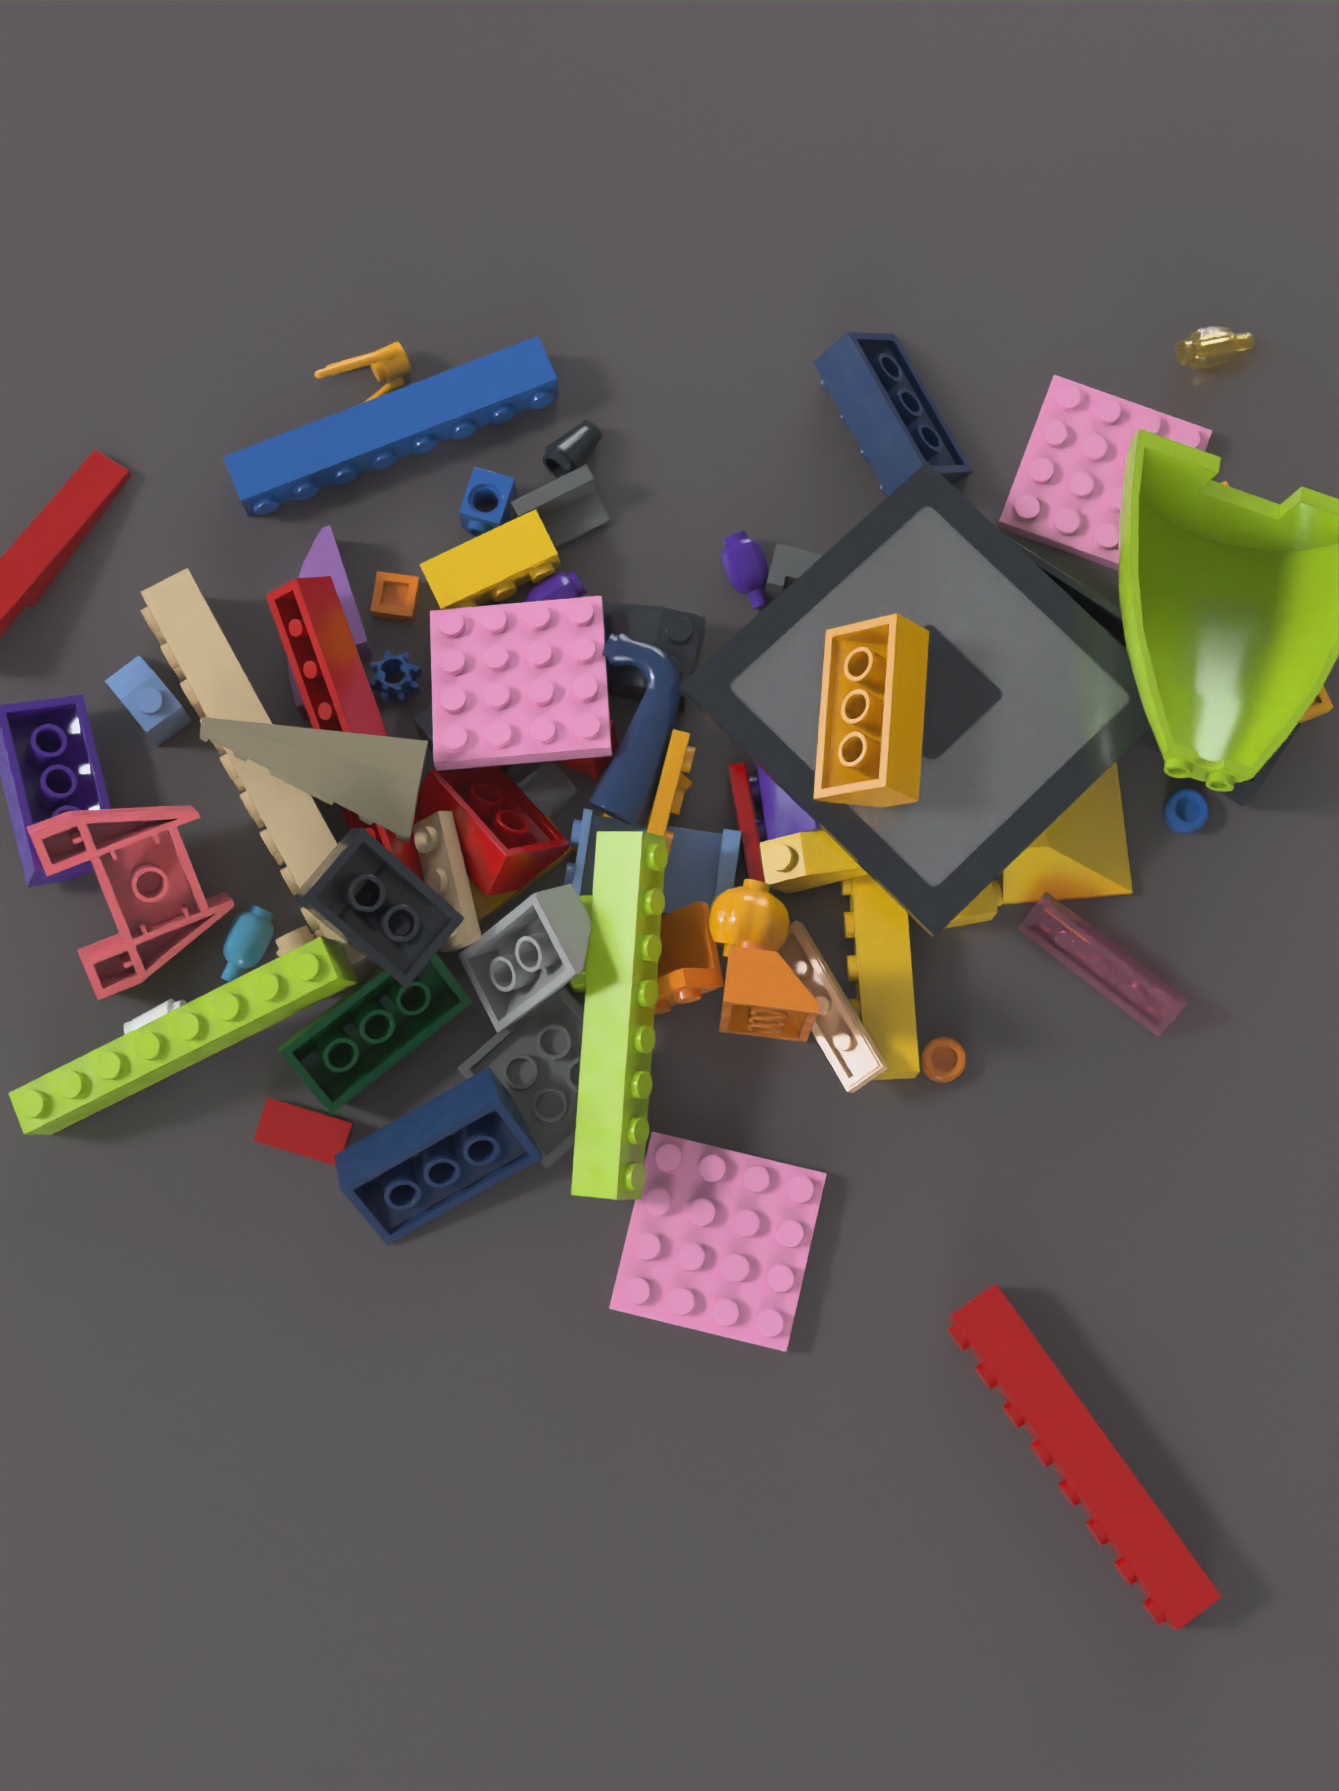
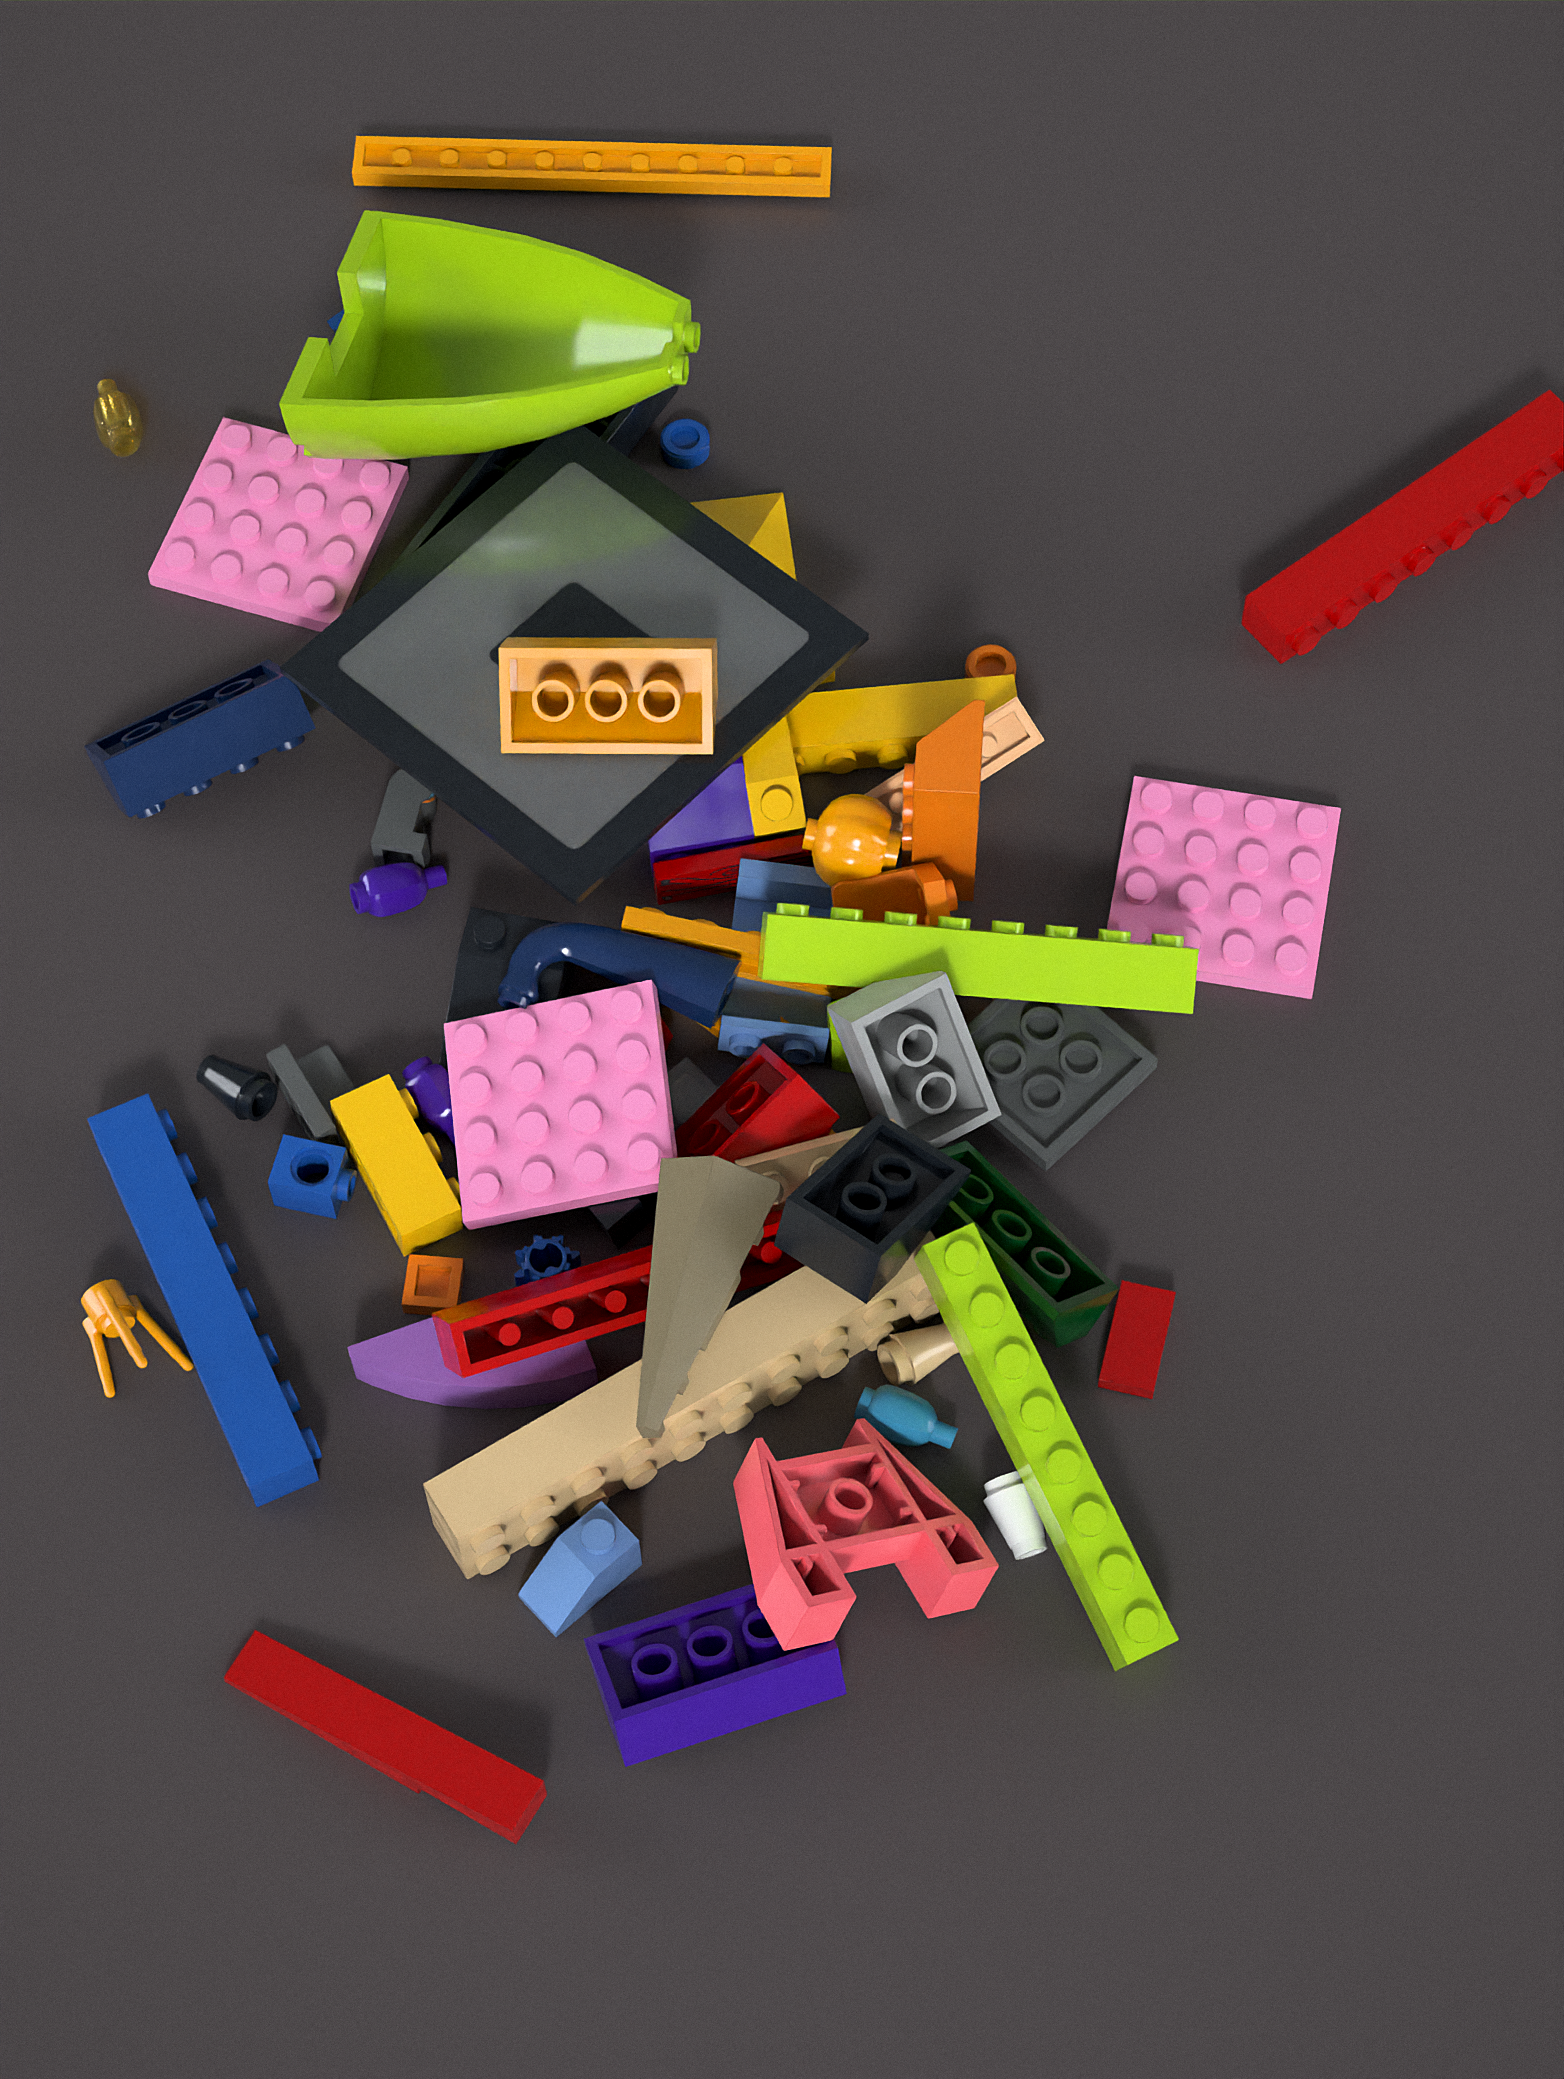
camera: 90 degrees left, 15 degrees down
(436, 1157) = (1155, 1170): dark blue slope -> none
(1103, 964) = (870, 514): clear pink plate -> none

